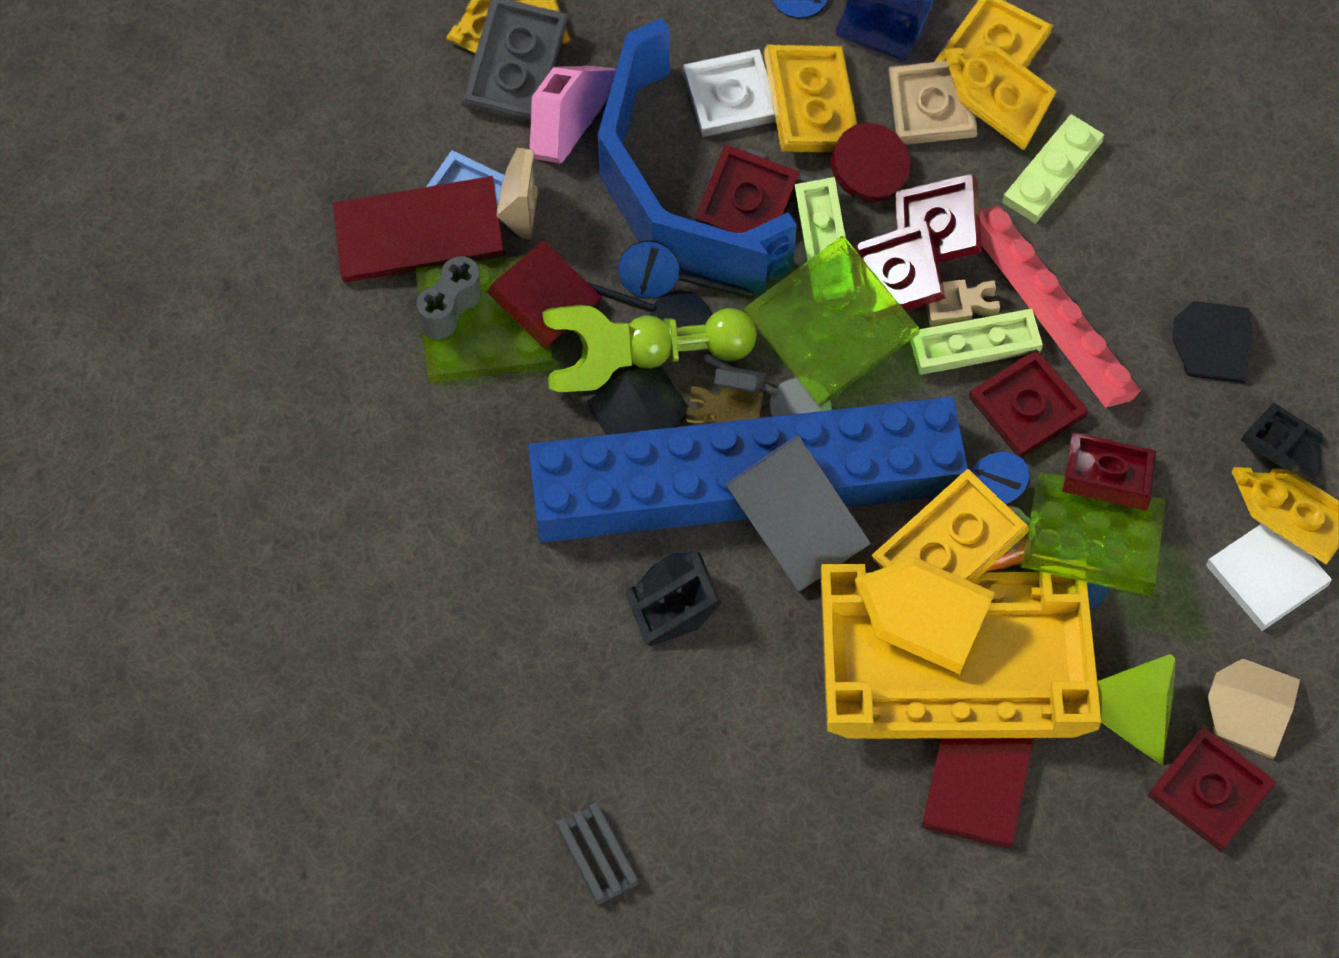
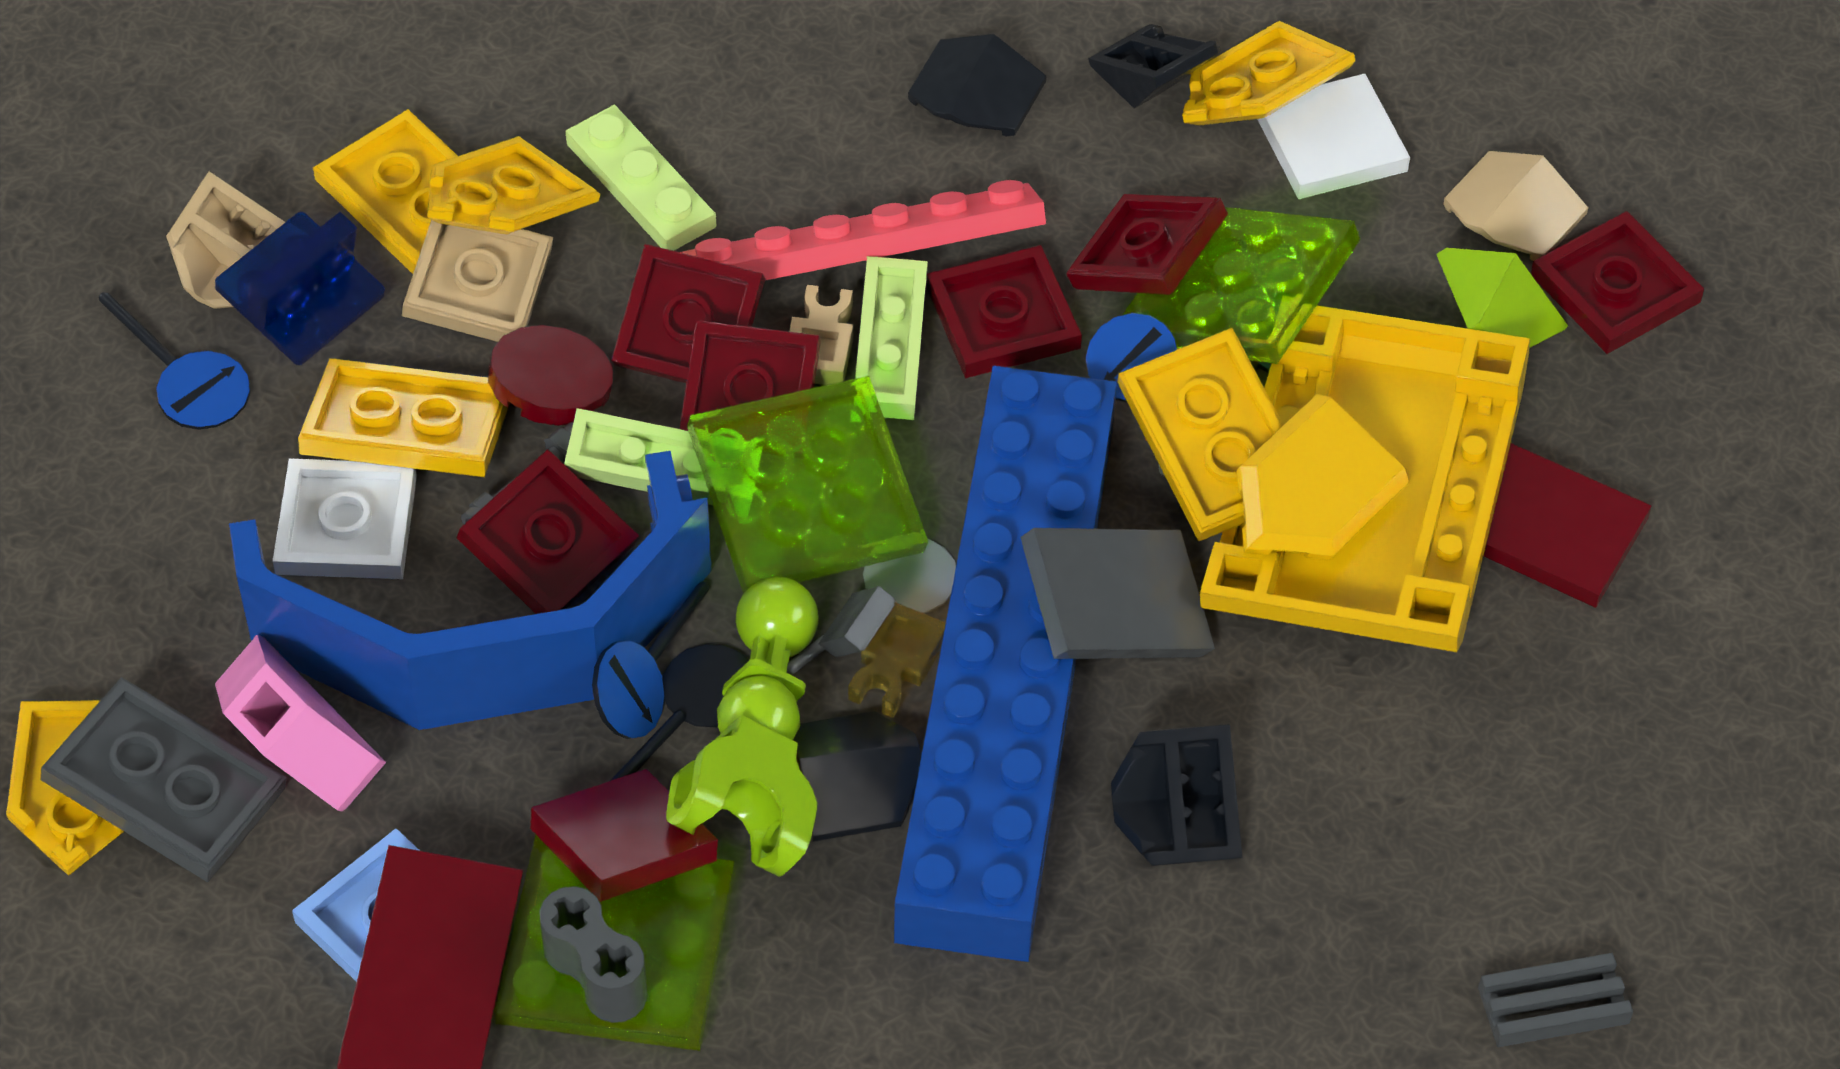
camera: 75 degrees left, 10 degrees down
(519, 194) = (430, 805): tan slope -> none

